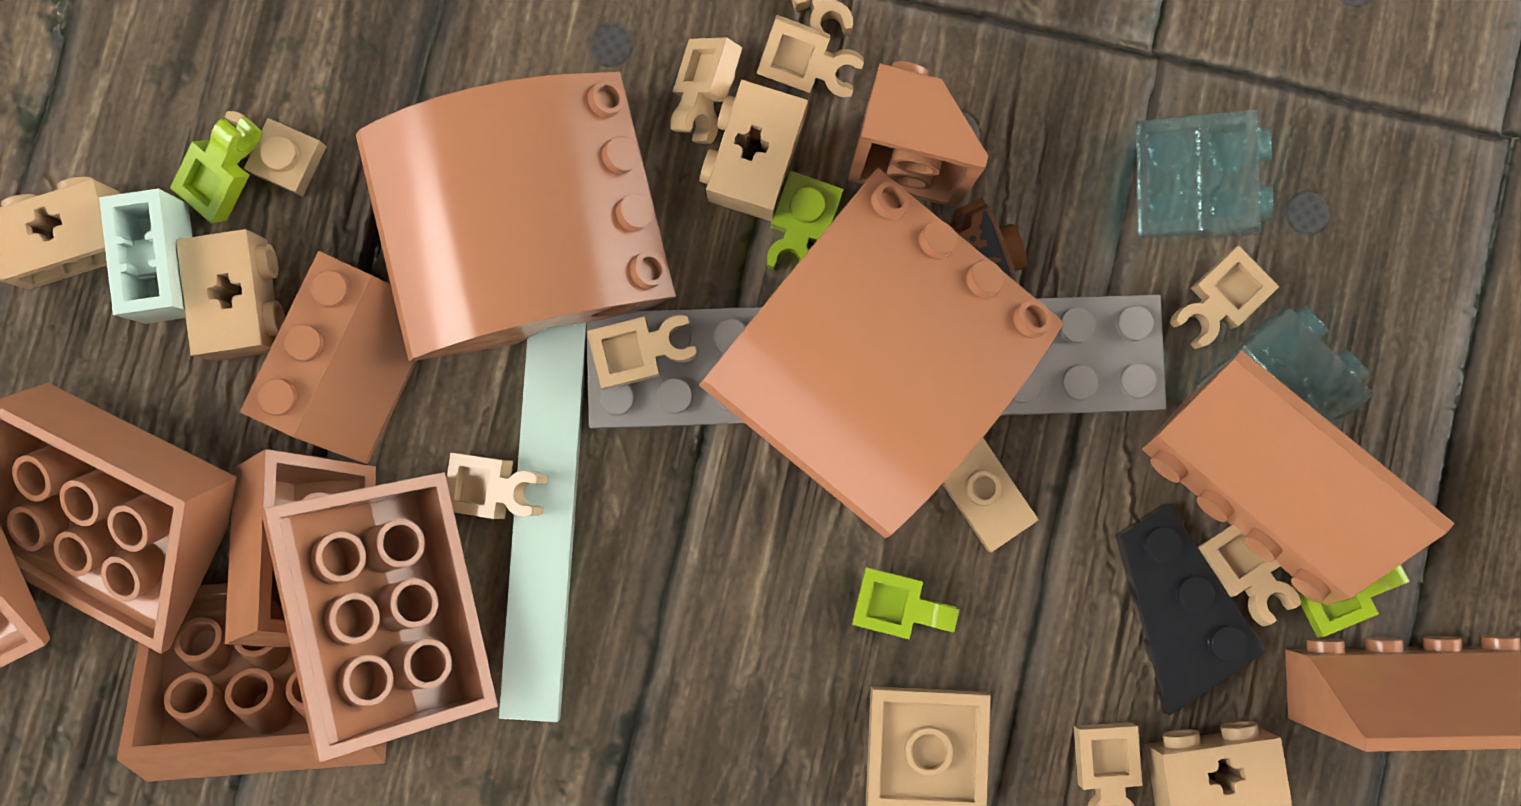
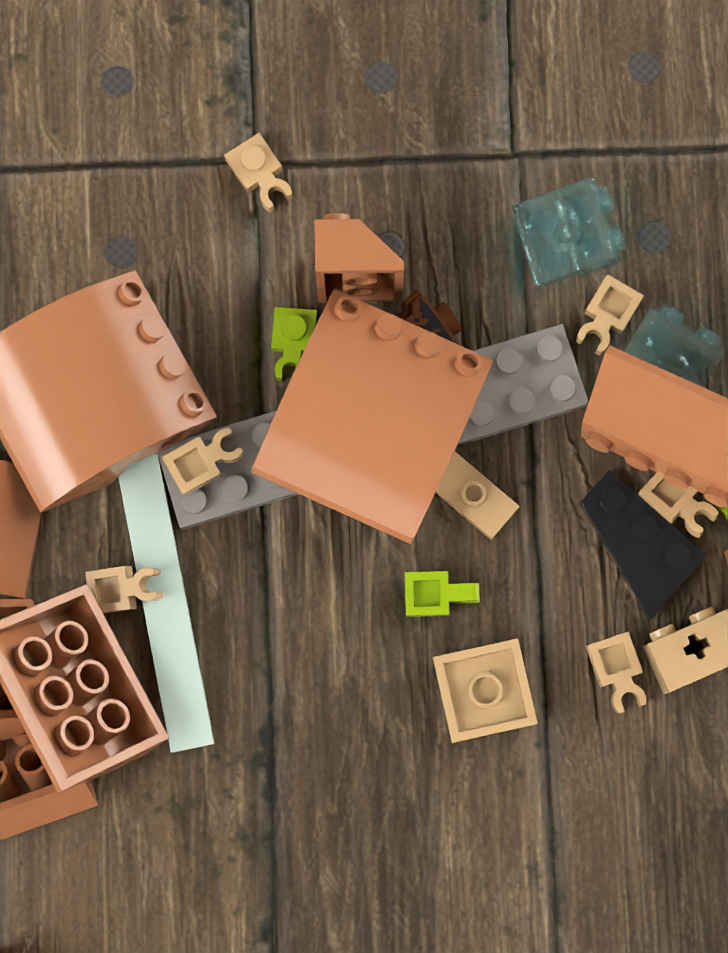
camera: 10 degrees left, 5 degrees down
(702, 79) = (194, 259): tan plate -> none
(759, 116) = (249, 275): tan brick -> none
(799, 55) = (258, 224): tan plate -> none

